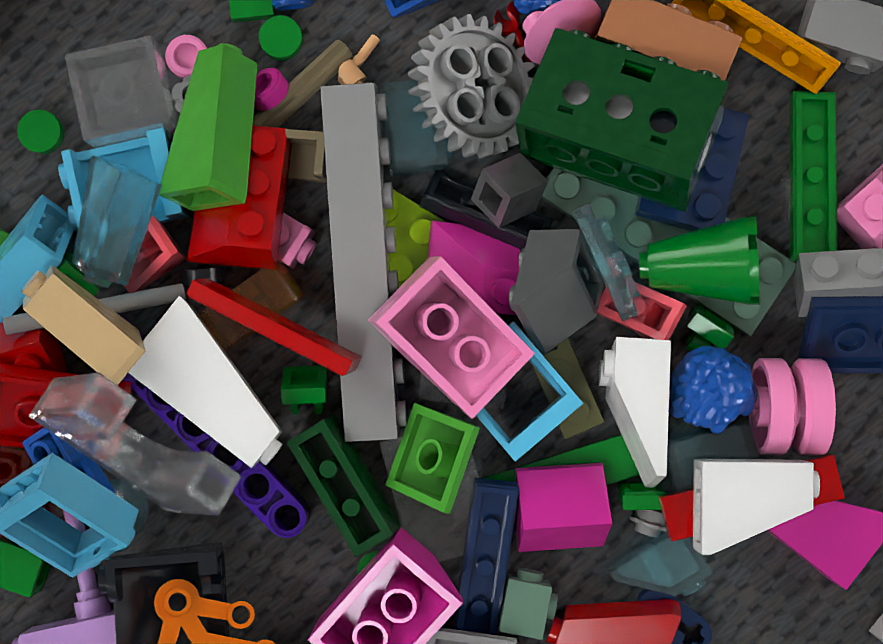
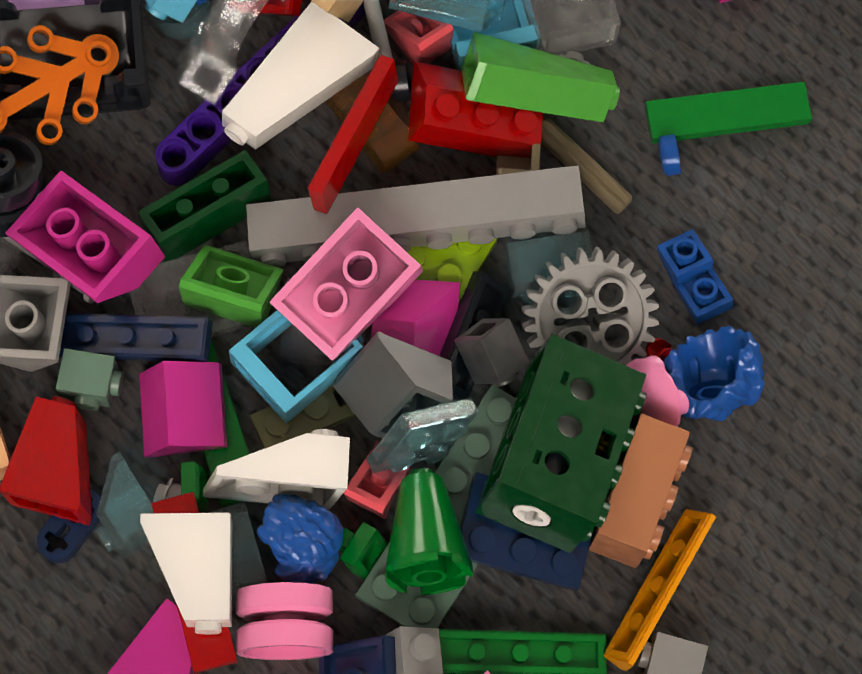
camera: 85 degrees right, 15 degrees down
(182, 54) = (611, 58): bright pink tile -> none
(270, 89) = (580, 134): dark pink tile -> none
(280, 38) = (631, 147): green tile -> none
(295, 242) = (435, 162): bright pink bracket -> none
(304, 386) = (296, 170): green tile -> none
(349, 70) = (602, 209): light nougat hand -> none

